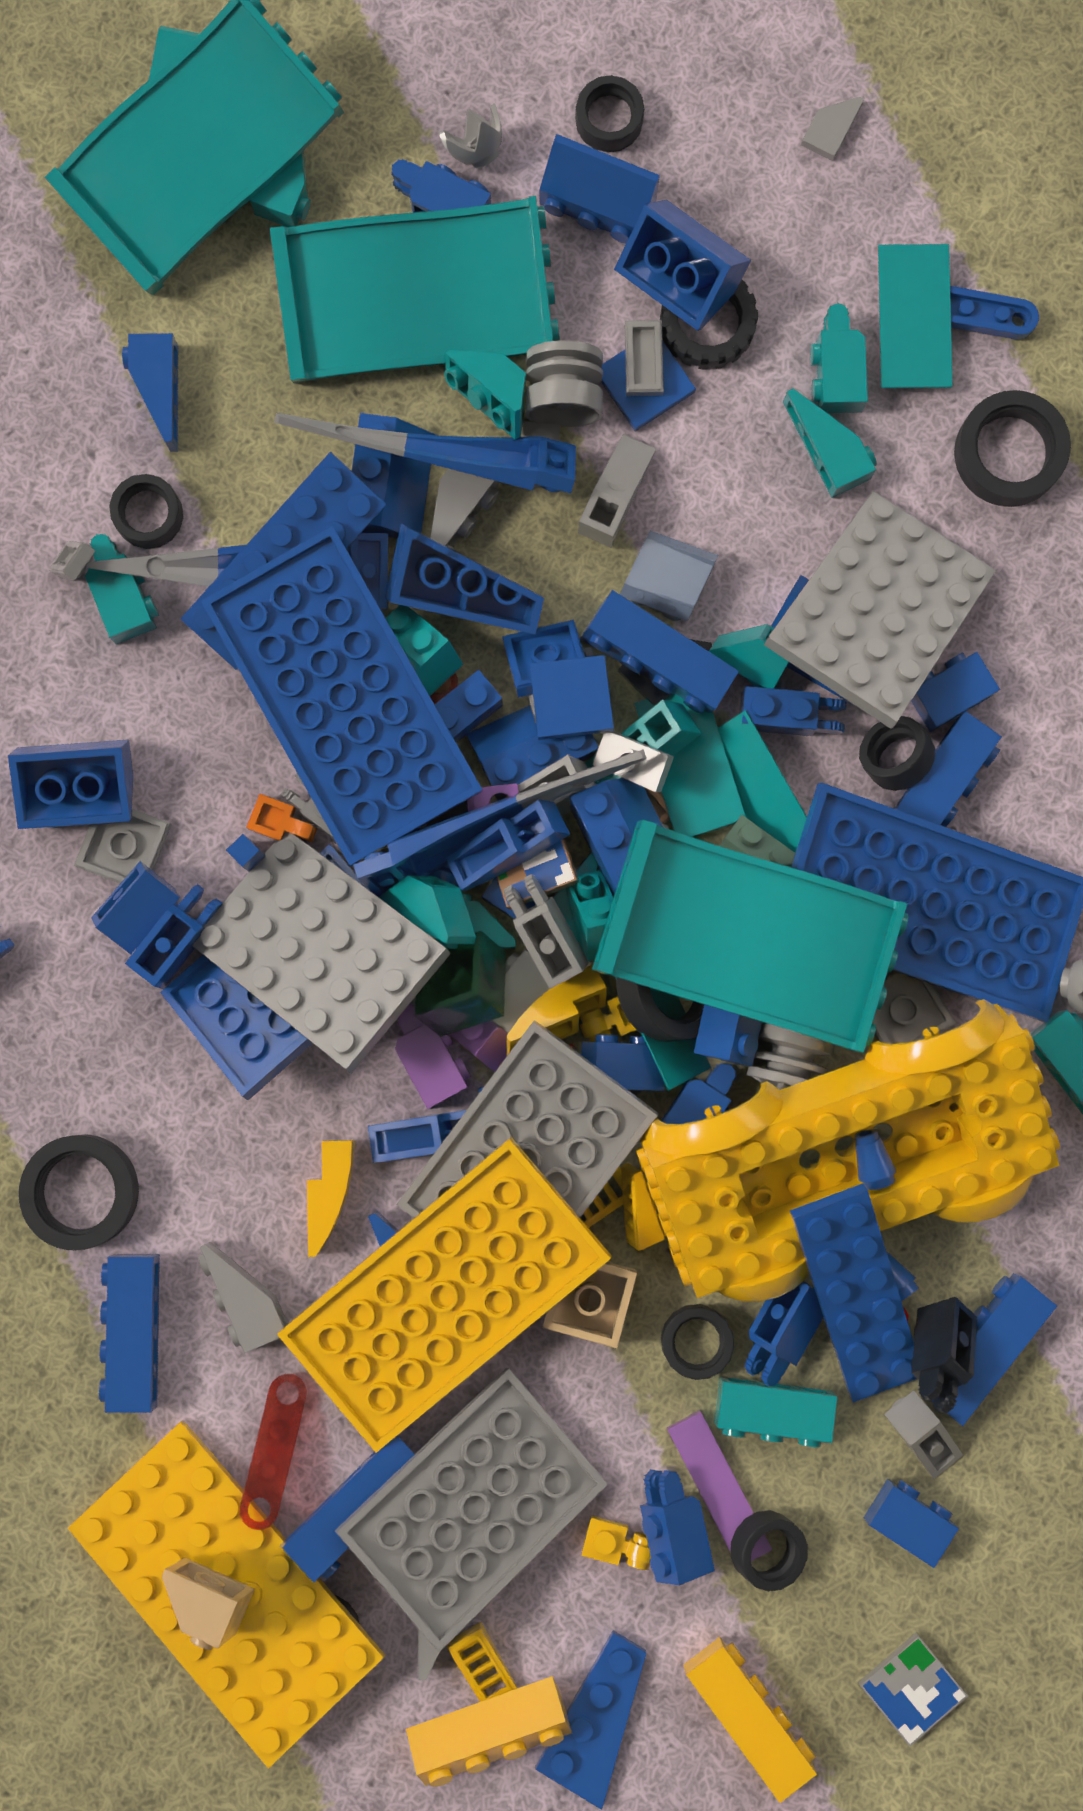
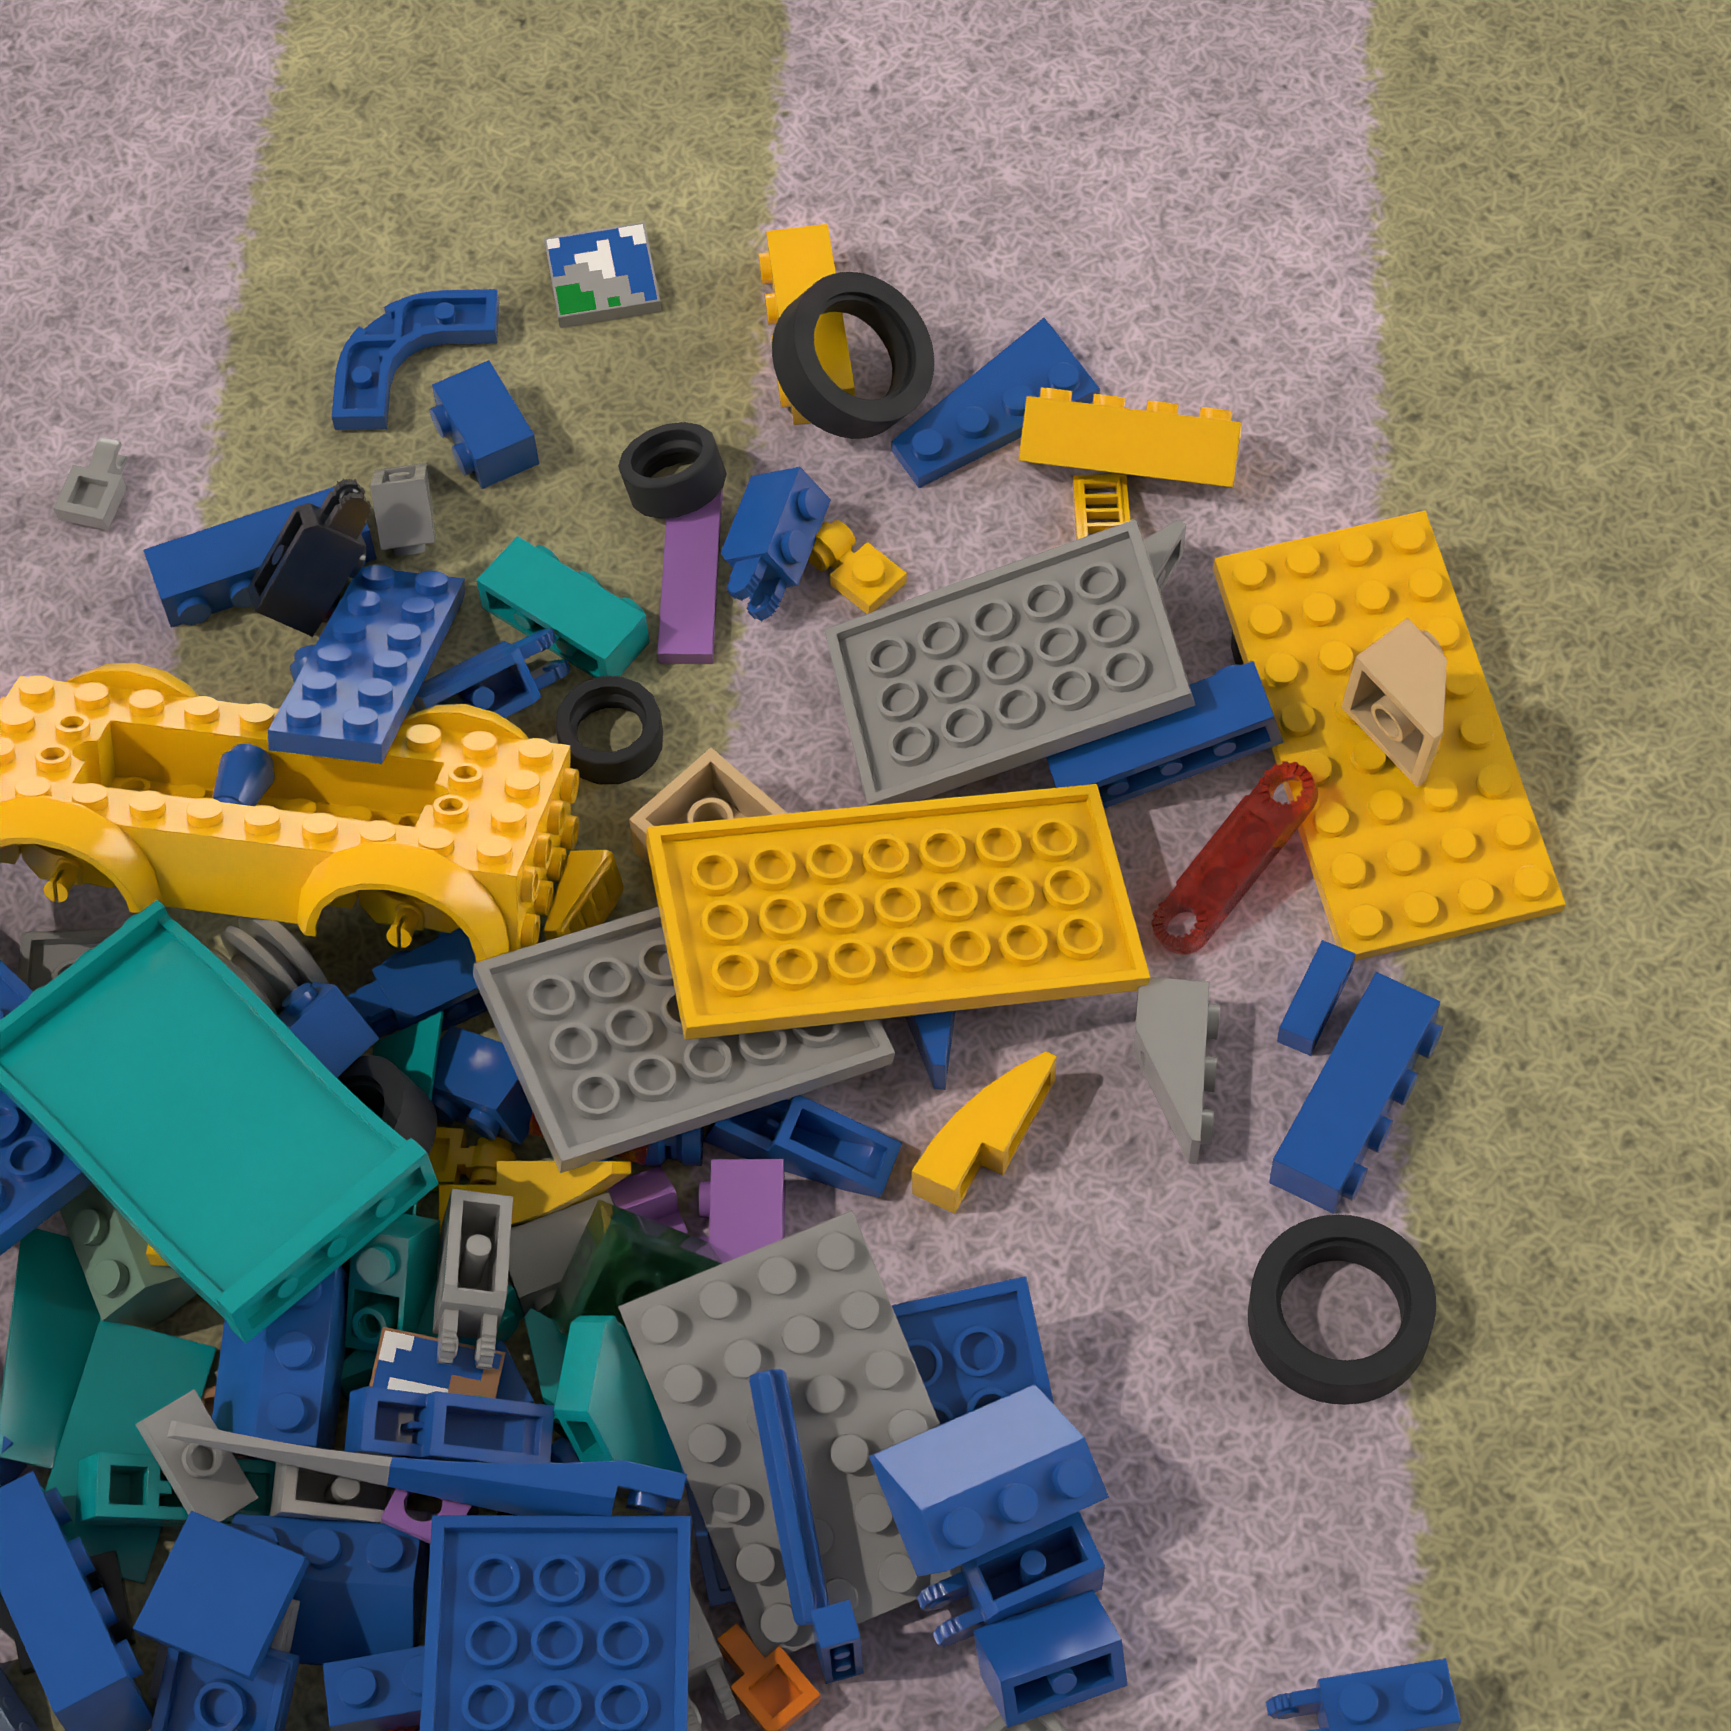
camera: 145 degrees left, 25 degrees down
(185, 1385) = (1316, 997): none -> blue piece
(204, 971) = (986, 1480): none -> blue slope
(305, 906) = (789, 1493): none -> blue axle
(663, 1717) = (893, 321): none -> black tyre
(1016, 1560) = (408, 326): none -> blue plate

